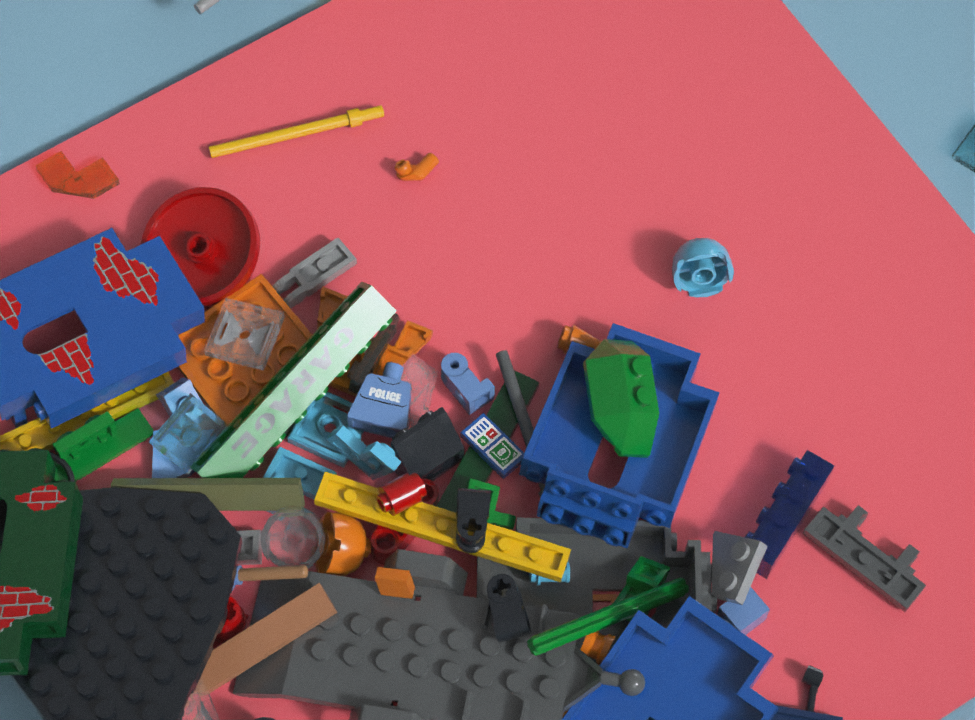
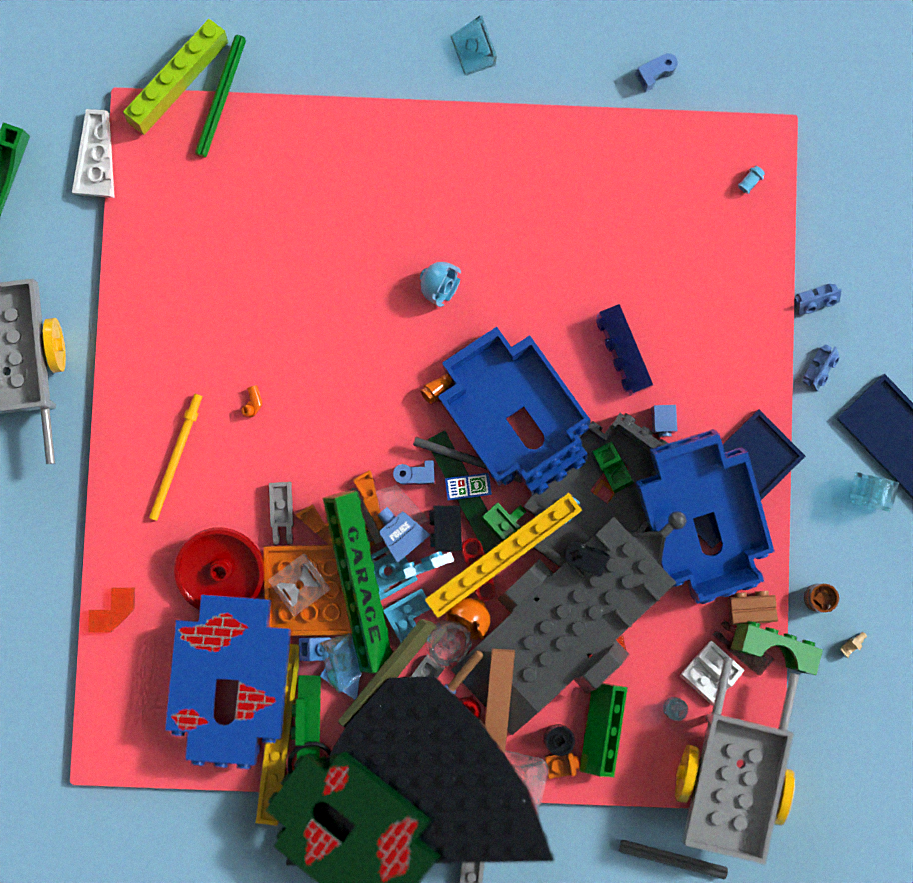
camera: 55 degrees left, 20 degrees up
(395, 582) = (519, 611): orange tile -> none
(401, 493) = (472, 567): red brick -> none
(472, 515) = (511, 533): black piece -> none
(598, 645) = (635, 518): orange wheel -> none
(607, 616) = (625, 502): green axle -> none
(622, 396) = (493, 393): green wedge -> none
(734, 566) = (639, 406): light grey wing -> none
(813, 677) = (726, 407): black hand -> none
(846, 544) = (696, 321): dark grey hinge -> none

